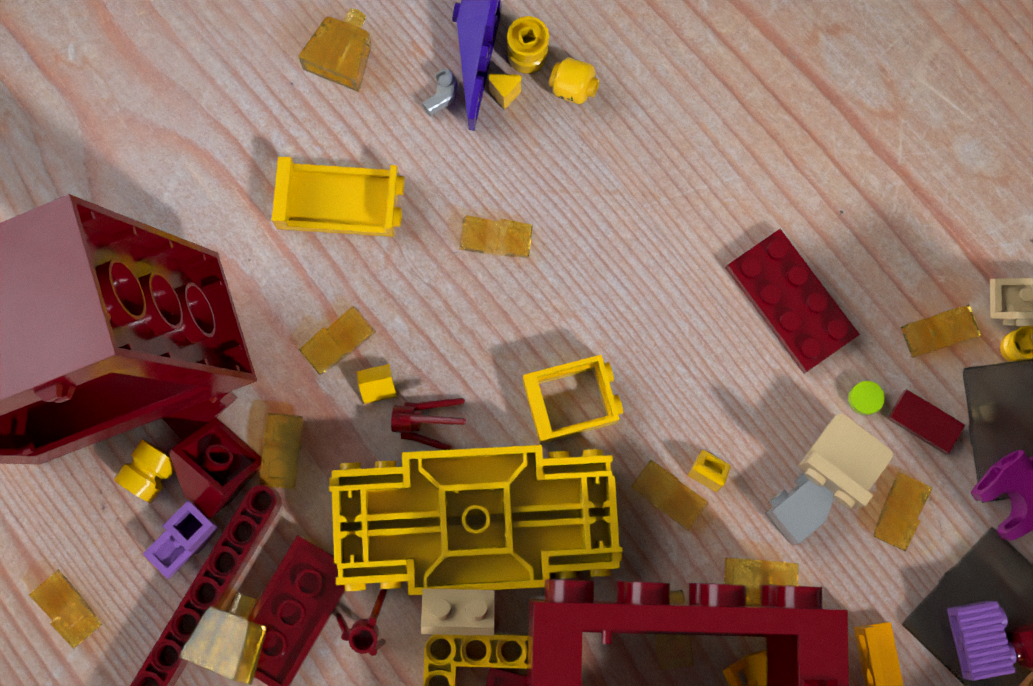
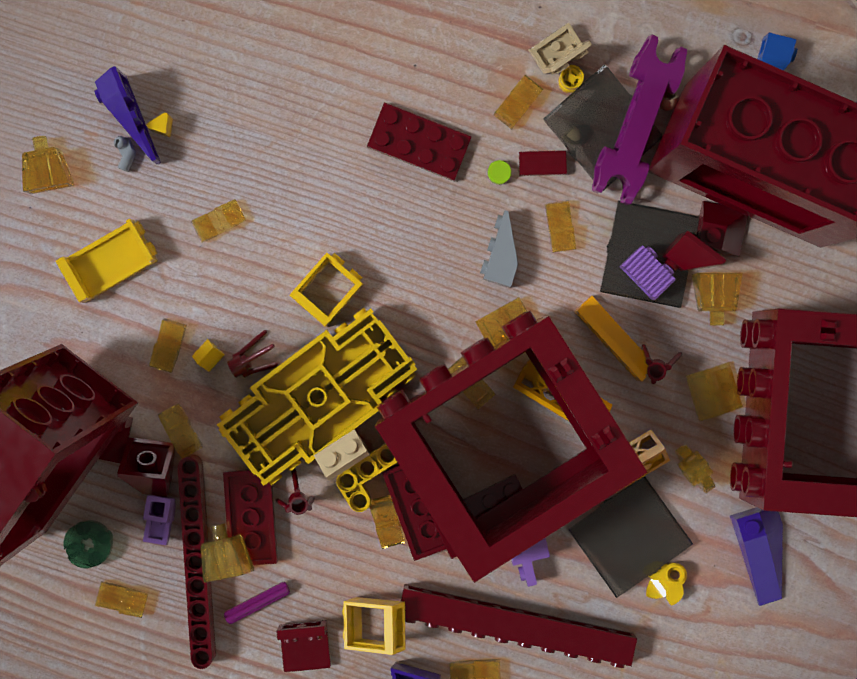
camera: 30 degrees left, 10 degrees up
(57, 507) = (76, 550): none -> clear green plate
(146, 471) = (111, 495): yellow wheel -> none
(527, 44) = (156, 88): yellow wheel -> none
(574, 80) = (200, 92): yellow head -> none
(669, 495) = (420, 306): clear yellow slope -> none
(709, 471) = (434, 276): yellow slope -> none
(846, 461) = (507, 221): tan bracket -> none

